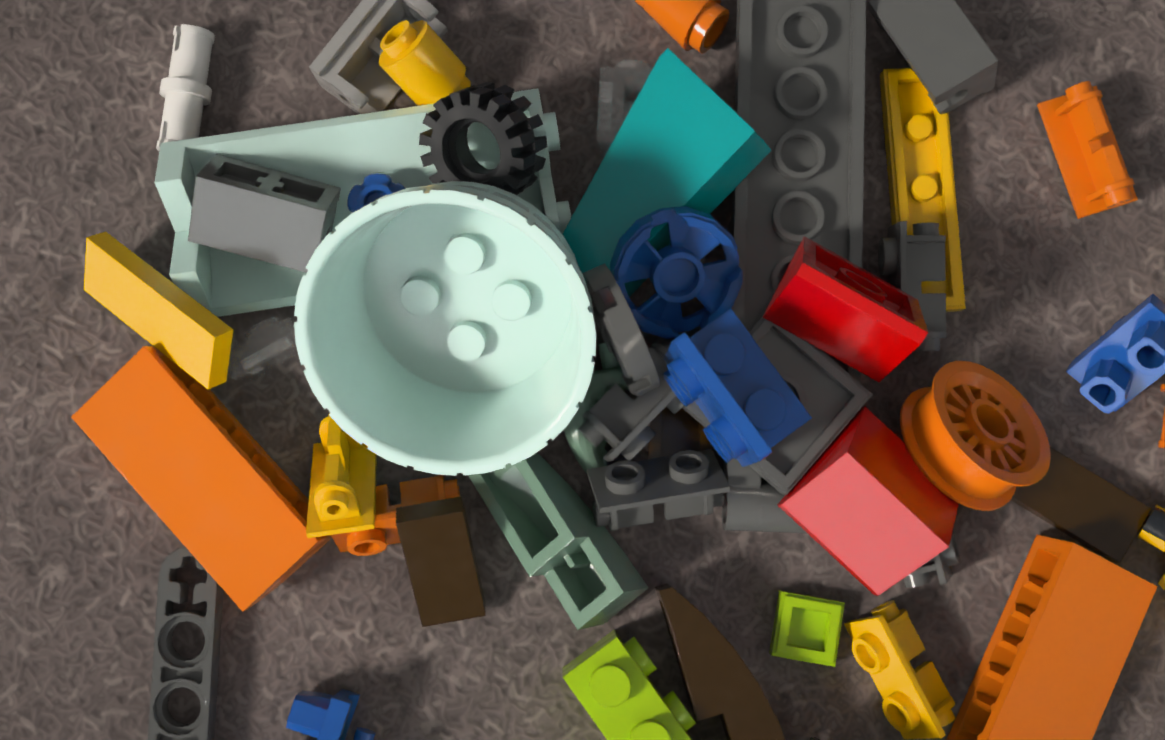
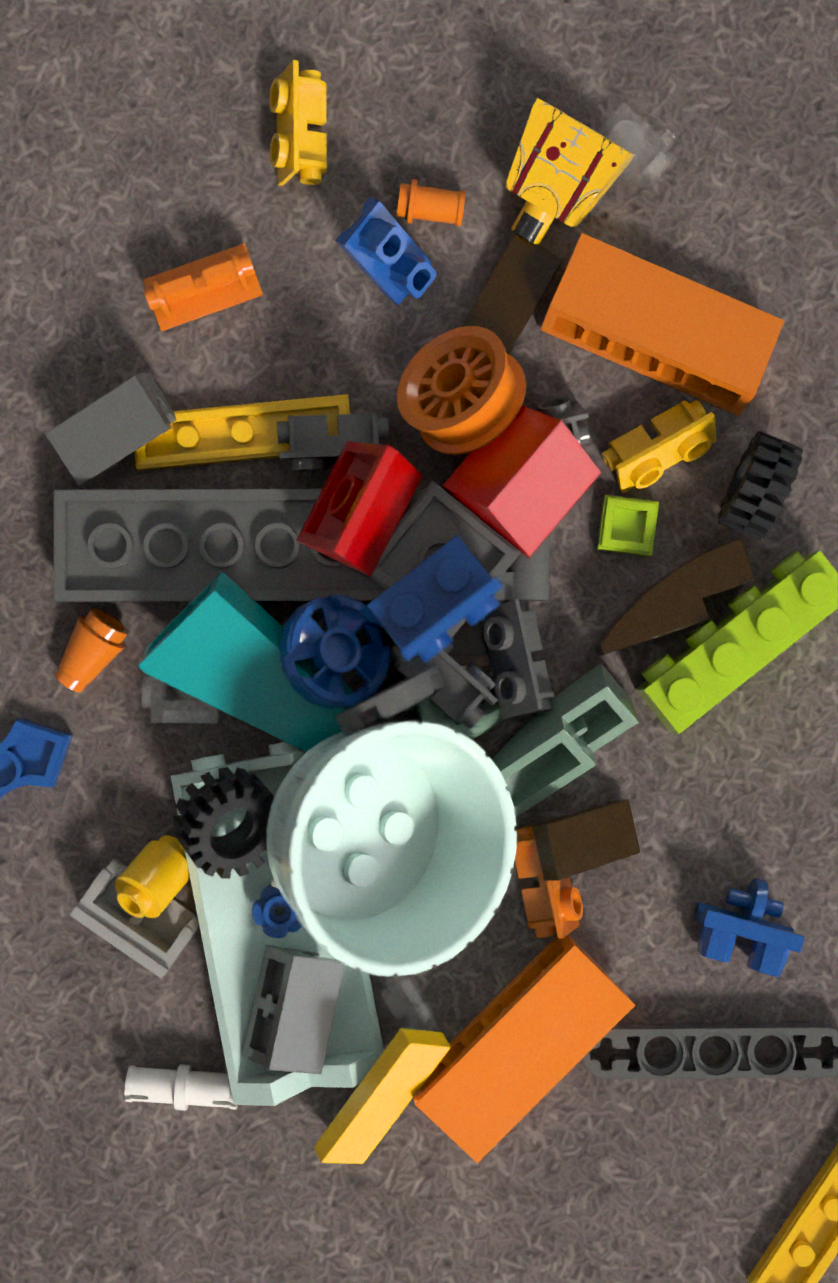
camera: 85 degrees left, 5 degrees up
(340, 484) = (527, 929): yellow hinge -> none

